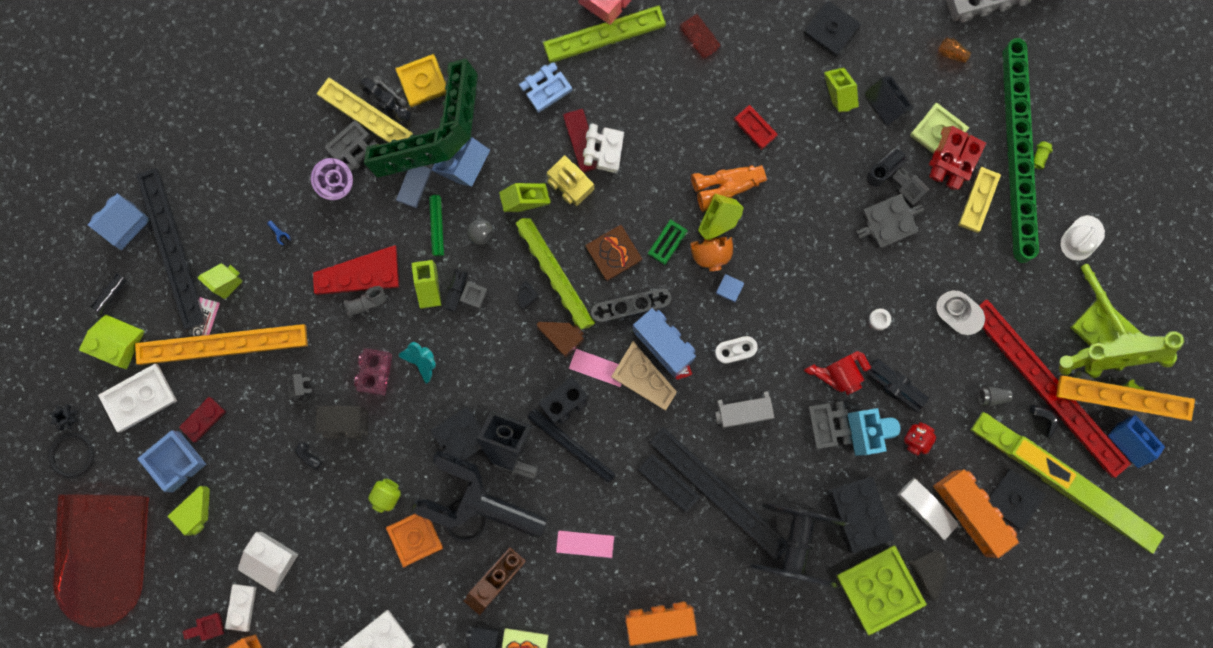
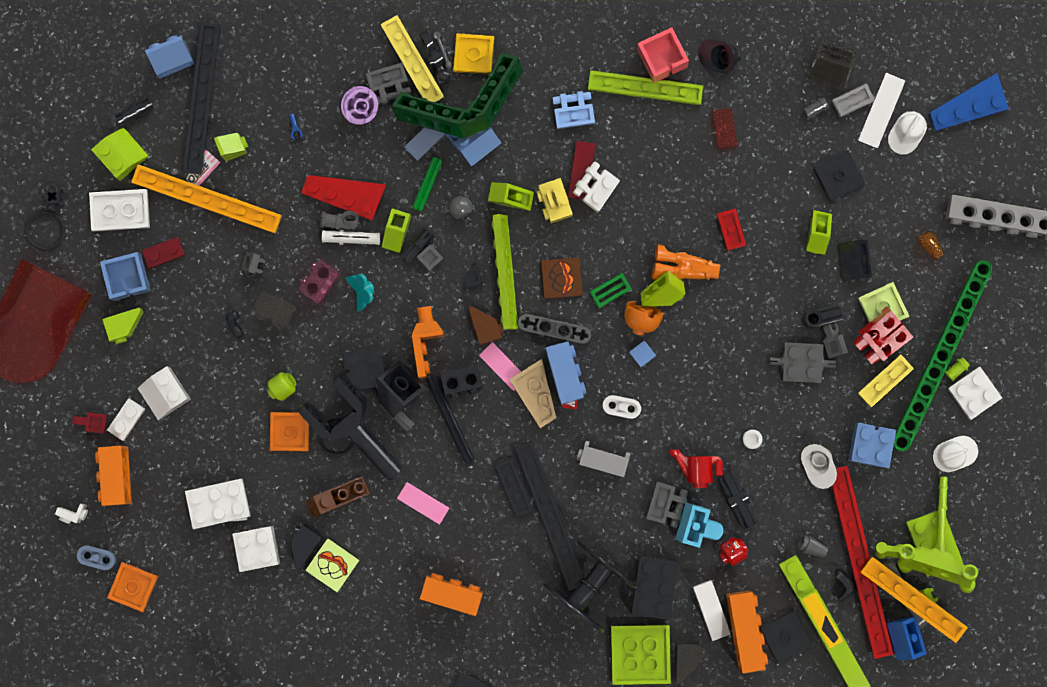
camera: 25 degrees right, 5 degrees up
(384, 313) = (354, 237): none -> white pin
(504, 367) = (424, 330): none -> orange plate
(1000, 267) = (872, 445): none -> medium blue piece
(1070, 170) = (974, 393): none -> white plate

